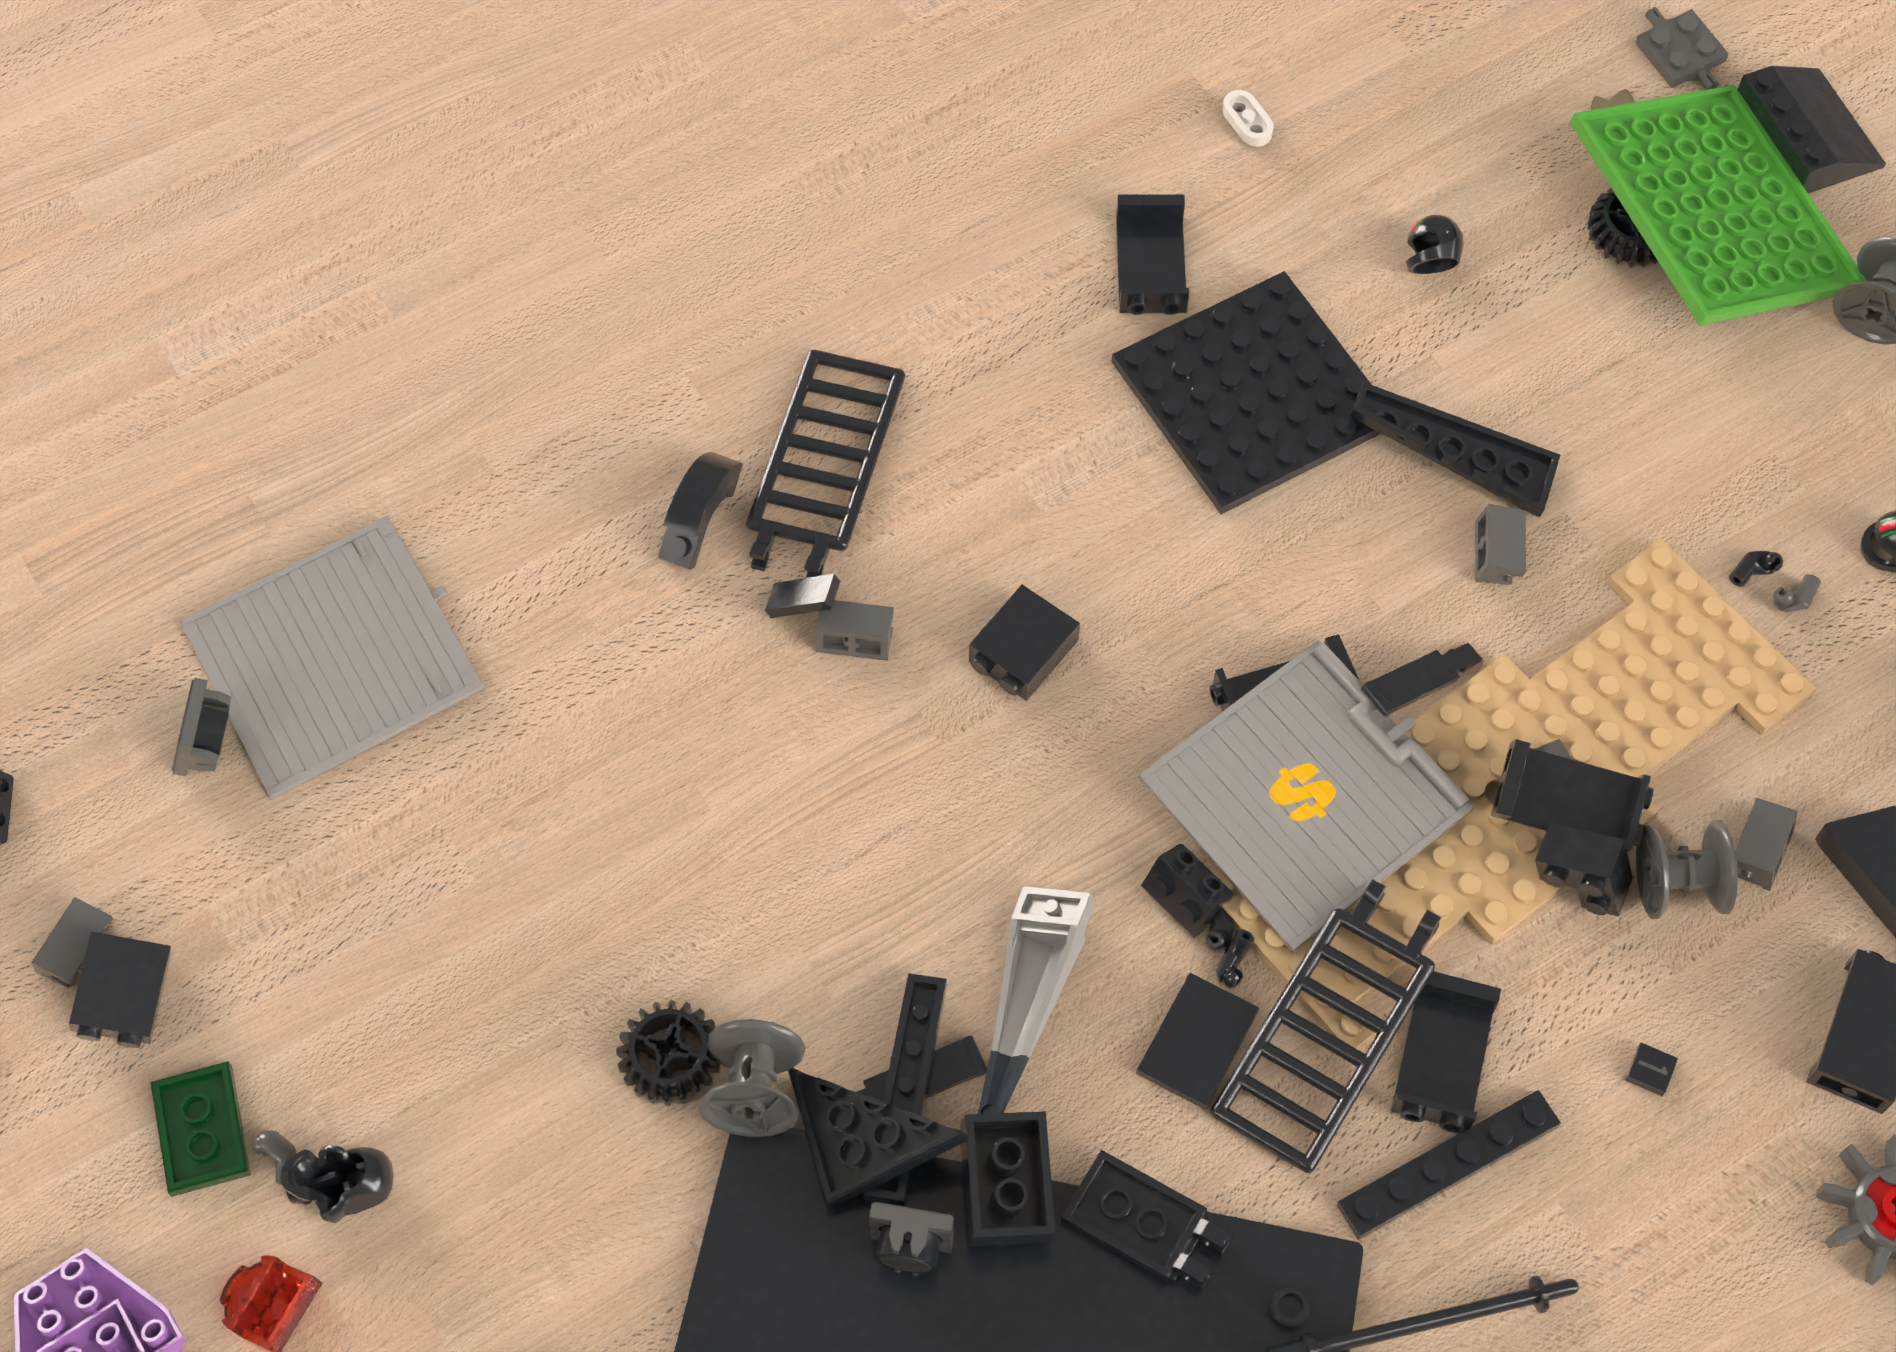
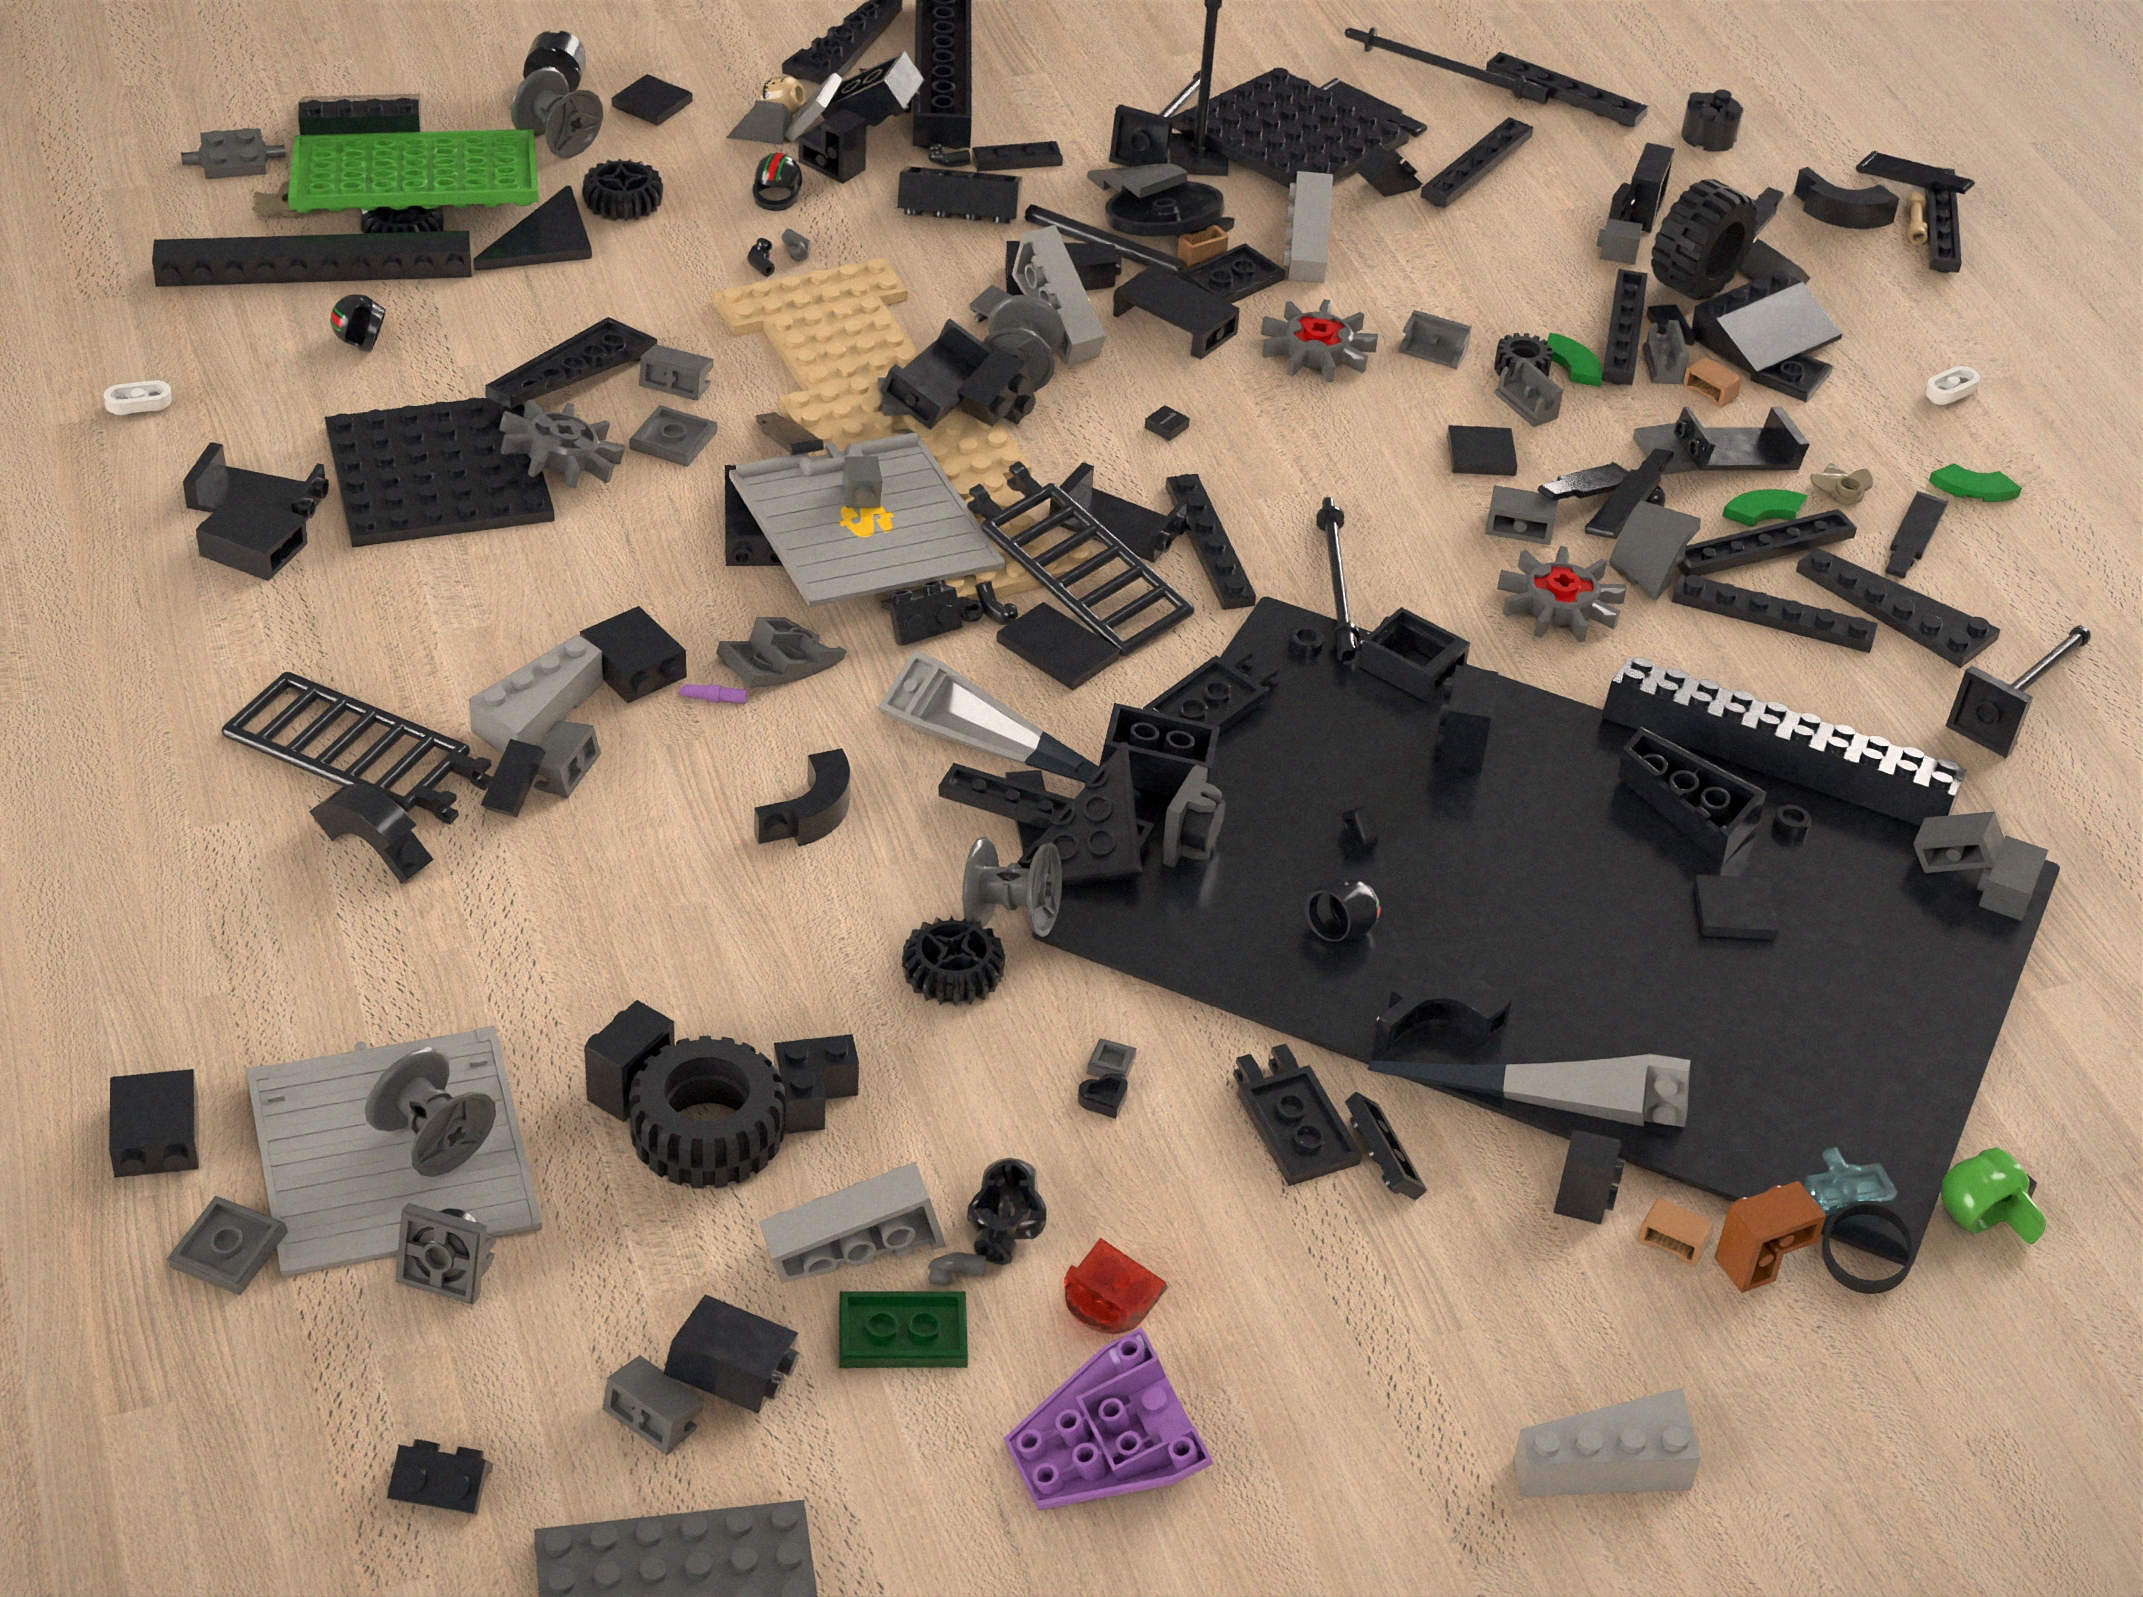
camera: 80 degrees left, 20 degrees down
(197, 573) = (227, 1245): none -> dark grey tile
(294, 1053) = (853, 1225): none -> light grey wedge
(312, 474) = (154, 1123): none -> black brick
(326, 663) = (416, 1097): none -> dark grey piece
(384, 846) = (707, 1149): none -> black tyre
(447, 802) = (618, 1053): none -> black brick
(471, 957) = (811, 1074): none -> black brick
(532, 1242) = (1104, 1095): none -> black tile
(581, 1238) = (1111, 1058): none -> dark grey tile
(860, 876) = (816, 811): none -> black arch
(925, 579) = (537, 695): none -> light grey wedge
(1004, 733) = (714, 693): none -> medium lavender piece
(1077, 277) = (251, 536): none -> black brick
(1079, 771) = (778, 653): none -> dark grey slope
(1317, 478) = (560, 443): none -> dark grey gear
(1340, 769) = (862, 482): none -> dark grey brick
(1399, 576) = (673, 435): none -> dark grey tile
(1534, 178) = (311, 258): none -> black brick
(1688, 358) = (545, 236): none -> black tile
(1797, 889) = (1048, 273): none -> light grey wedge
(1800, 408) = (622, 189): none -> black gear

